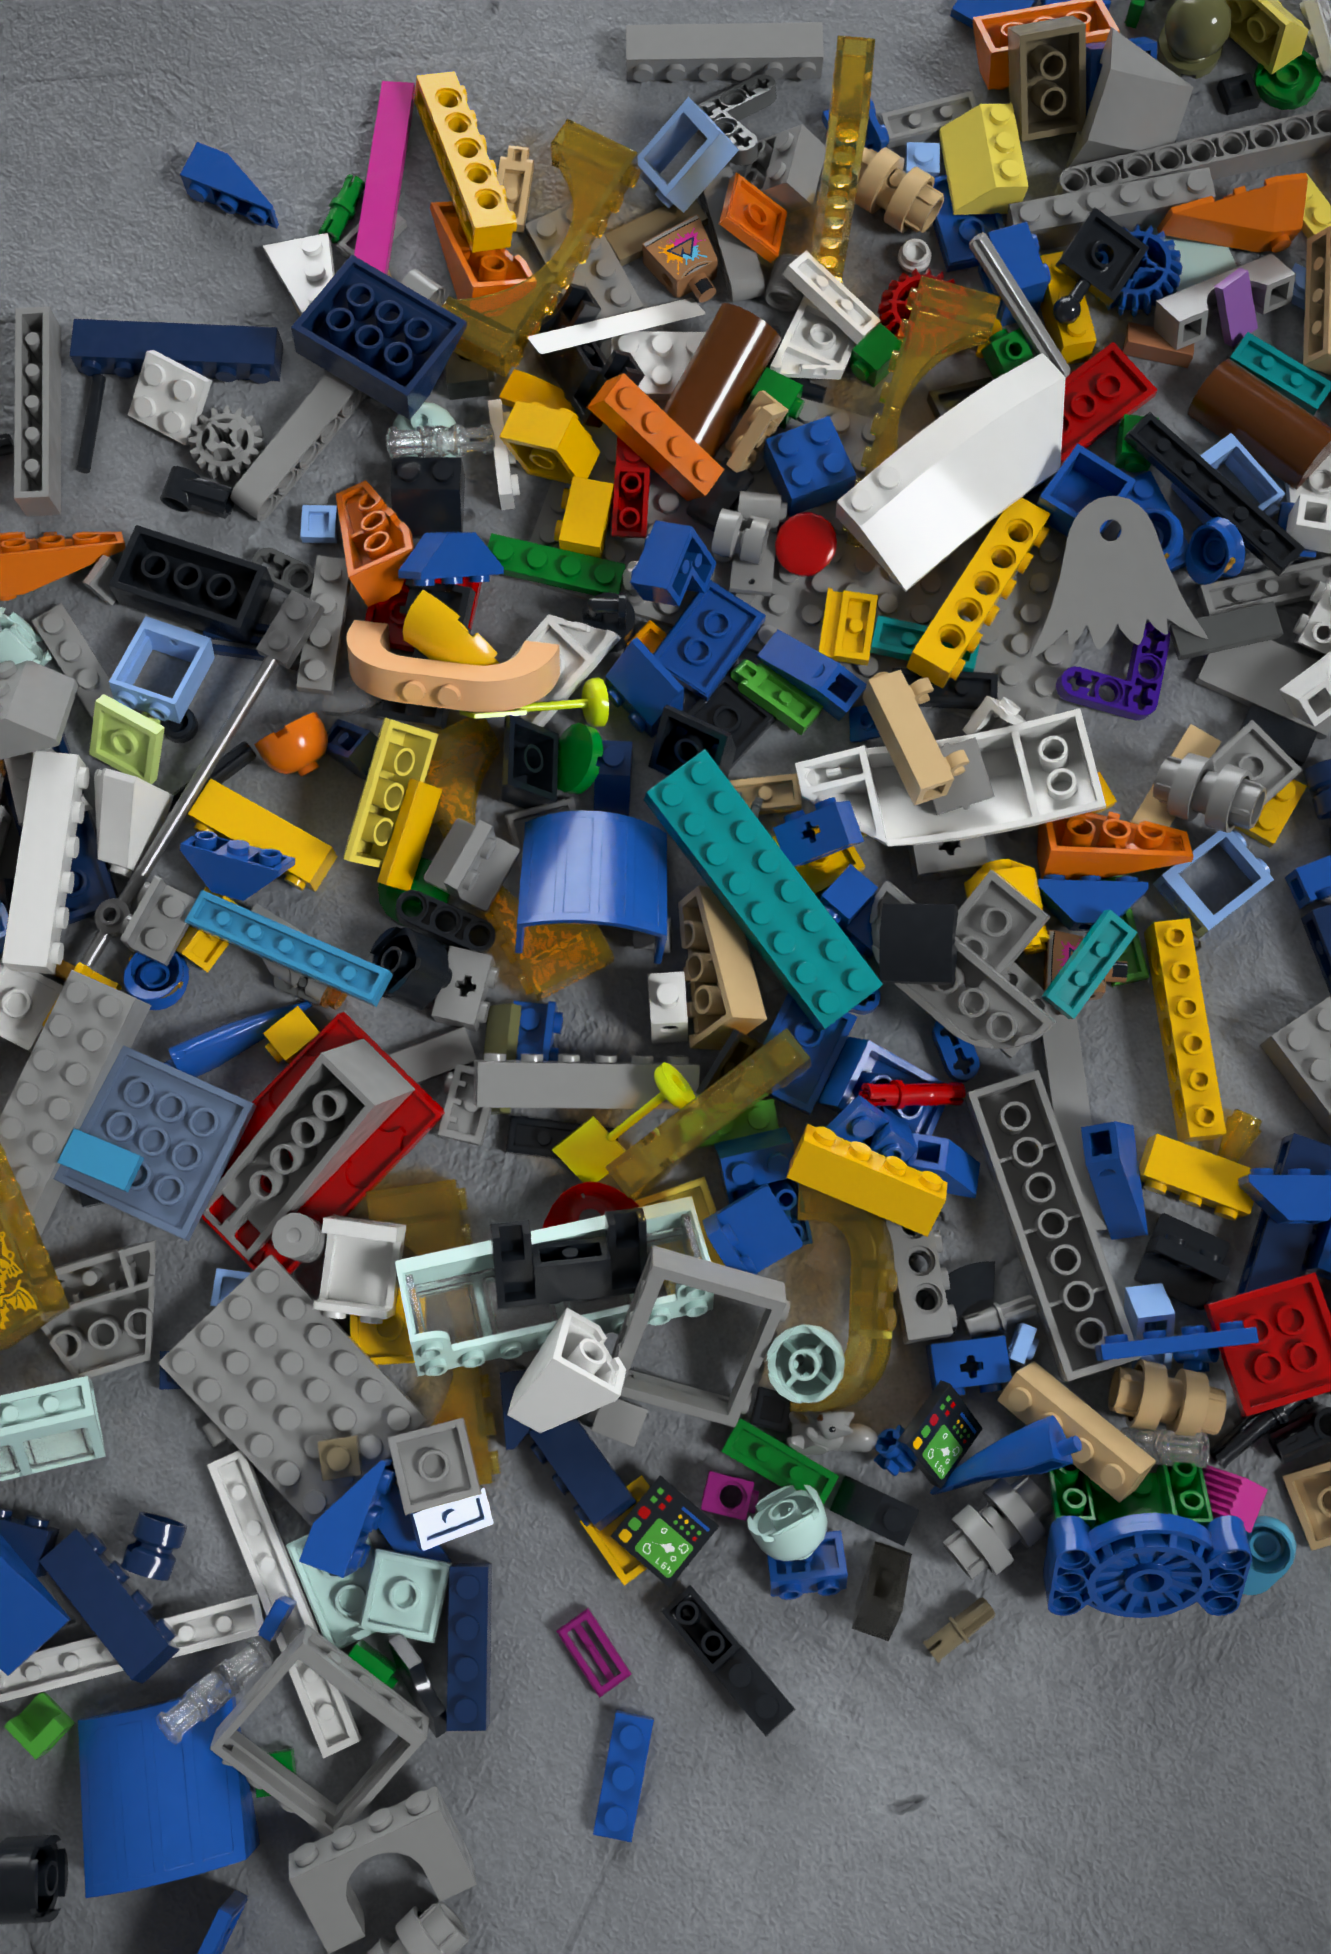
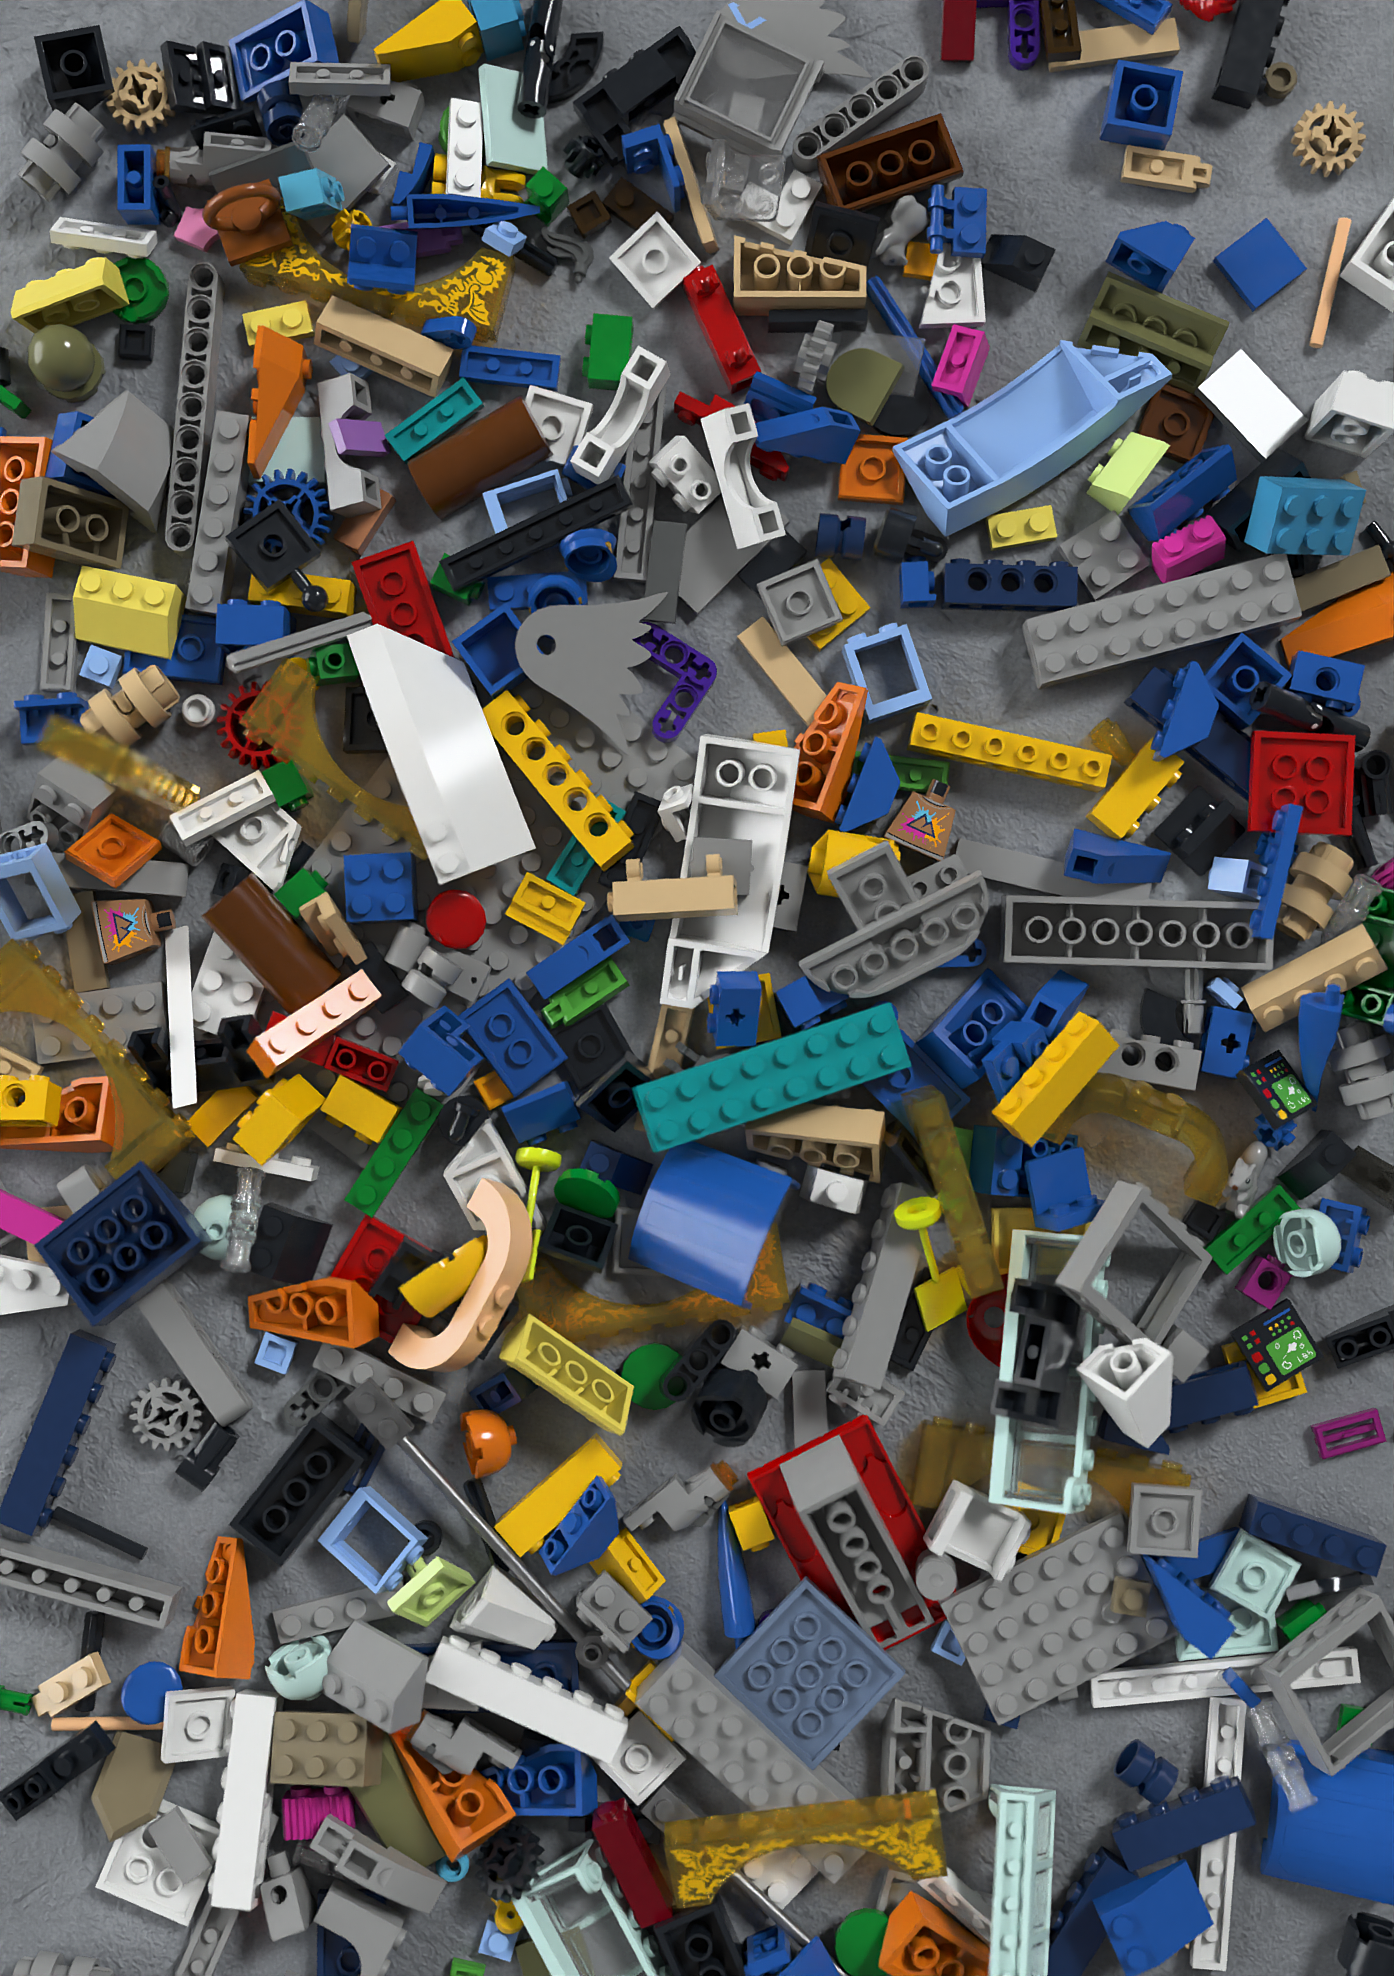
camera: 65 degrees left, 10 degrees up
(40, 1725) = (1256, 1907): bright green panel -> none
(100, 577) = (263, 1567): light grey tile -> none
(100, 1160) = (812, 1725): dark azure tile -> none
(169, 397) = (104, 1454): white plate -> none
(289, 948) = (679, 1507): dark azure tile -> none
(409, 835) = (609, 1367): yellow tile -> none
(450, 558) = (368, 1253): blue slope -> none
(450, 1520) = (1212, 1527): plate -> none
(472, 864) = (656, 1321): light grey bracket -> none
(805, 1363) = (1190, 1185): light aqua cylinder -> none
(899, 1095) = (986, 1020): red pin -> none
(918, 943) = (868, 960): black slope -> none
(1089, 964) = (931, 816): teal plate -> none
(1224, 797) = (824, 642): light grey piece -> none

